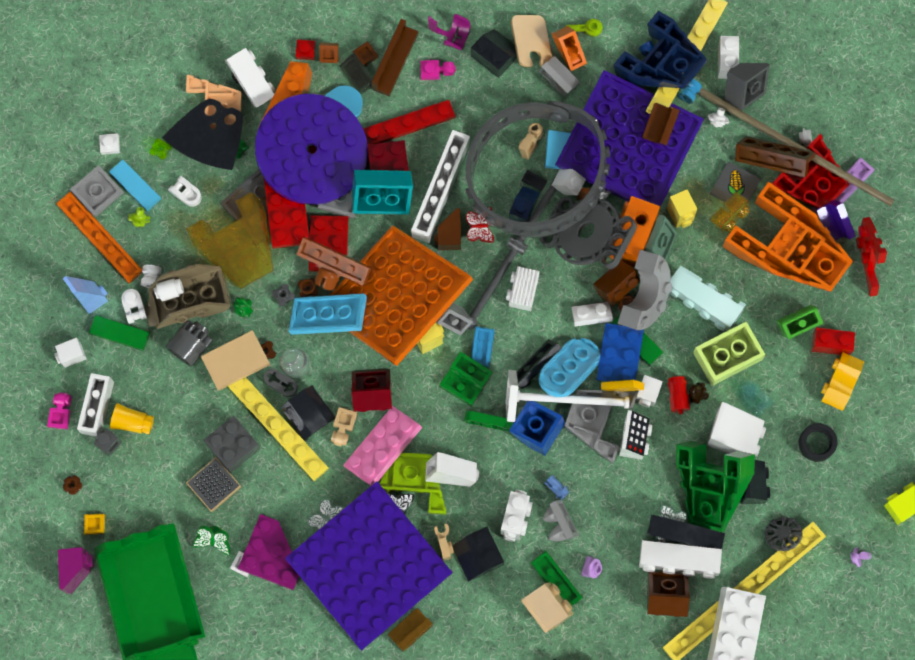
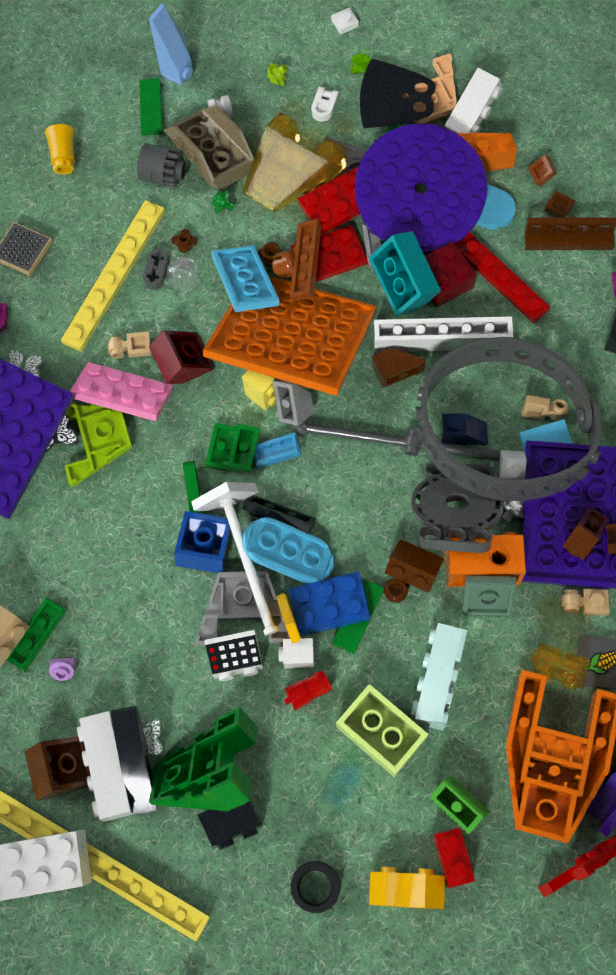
camera: 70 degrees right, 5 degrees down
(59, 416) = (43, 89): dark pink plate -> none
(70, 353) = (111, 71): white brick -> none
(95, 405) = (68, 109): white brick -> none
(97, 191) = (289, 28): light grey plate -> none
(99, 237) = (243, 51): orange tile -> none
(107, 441) = (31, 132): dark grey brick -> none
(130, 300) = (188, 102): white plate -> none
(135, 185) = (311, 59): medium azure tile -> none
(169, 289) = (207, 121): white brick -> none
(232, 444) = (69, 247): dark grey brick -> none
(235, 360) = (159, 214): tan tile -> none
(283, 290) = (255, 238): dark grey plate -> none
(305, 49) = (535, 149): red plate -> none
(307, 412) = (133, 305): black slope -> none
(357, 73) = (533, 206): clear smoke slope -> none
(430, 69) = (578, 277): dark pink plate -> none
(446, 547) = (31, 498): tan plate -> none
(451, 470) = (116, 469): white slope -> none
(478, 554) = (37, 538): black slope -> none
(479, 228) = (408, 394): red animal -> none
(514, 518) = (88, 556): white brick -> none
(523, 288) = (363, 467): white brick -> none
(534, 180) = (499, 432): black piece -> none
(560, 491) = (143, 593): medium blue pin -> none
(565, 529) = (100, 619): light grey tile -> none
(592, 314) = (366, 554): white plate -> none
(644, 153) = (586, 533): none -> reddish brown slope
(652, 293) = (412, 610): light grey brick -> none
(682, 209) = (539, 605): light yellow brick -> none
(689, 173) = (592, 600): none -> tan plate
(698, 392) = (319, 712): dark brown plant -> none
(736, 431) = (285, 776): white slope -> none
(783, 533) = (180, 884): dark grey wheel -> none

